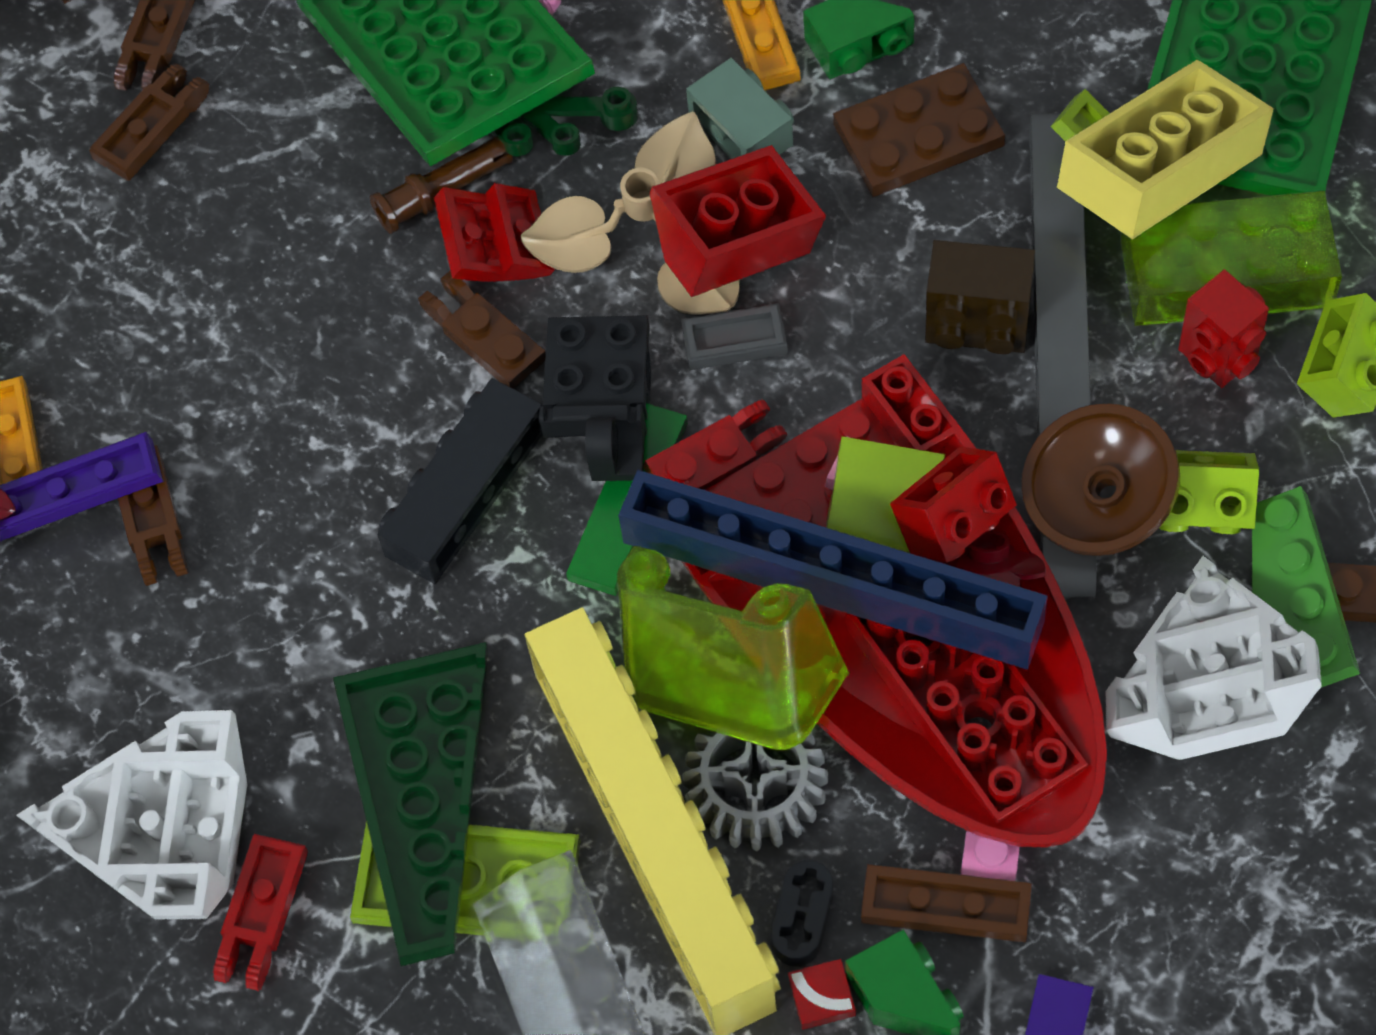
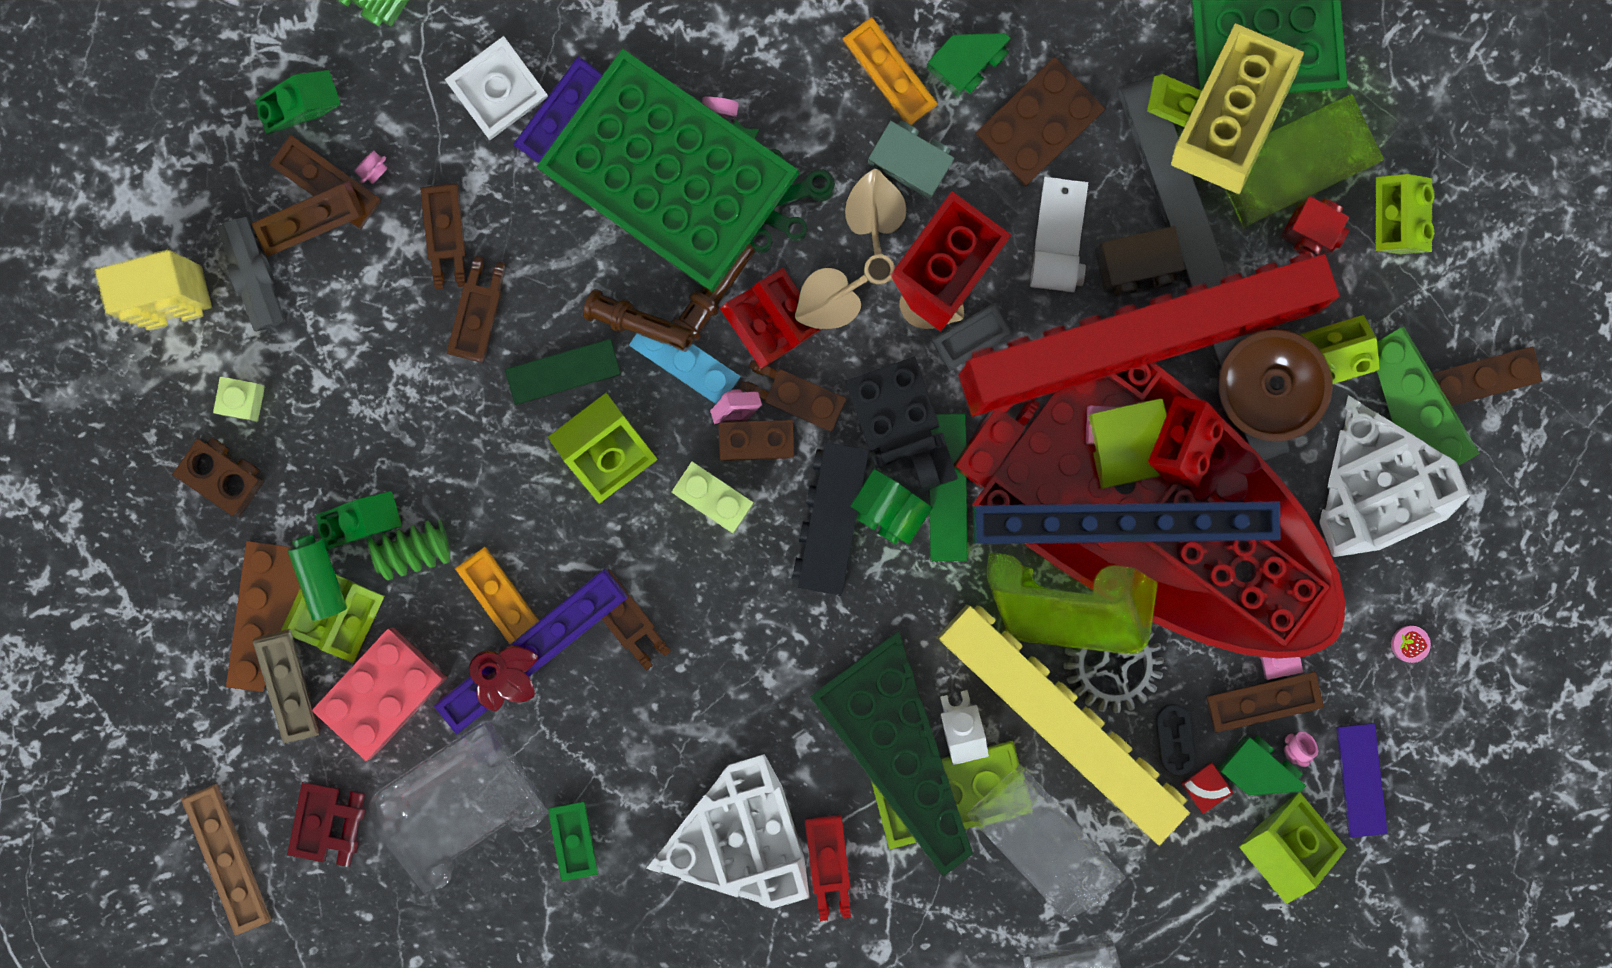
camera: 25 degrees left, 25 degrees up
(216, 218) = (563, 372): none -> dark green tile
(219, 311) = (602, 448): none -> lime slope
(315, 172) = (623, 316): none -> reddish brown pin
(324, 404) = (712, 497): none -> yellowish green brick
(368, 253) = (691, 367): none -> medium azure plate
(401, 310) = (735, 406): none -> bright pink plate
(409, 358) = (756, 440): none -> reddish brown brick
(513, 793) = (963, 730): none -> white brick
(540, 481) = (891, 507): none -> green brick
(891, 255) = (1059, 236): none -> white door
(945, 351) = (1147, 334): none -> red brick
(974, 983) = (1300, 748): none -> bright pink plate
(1183, 901) = (1410, 644): none -> tile

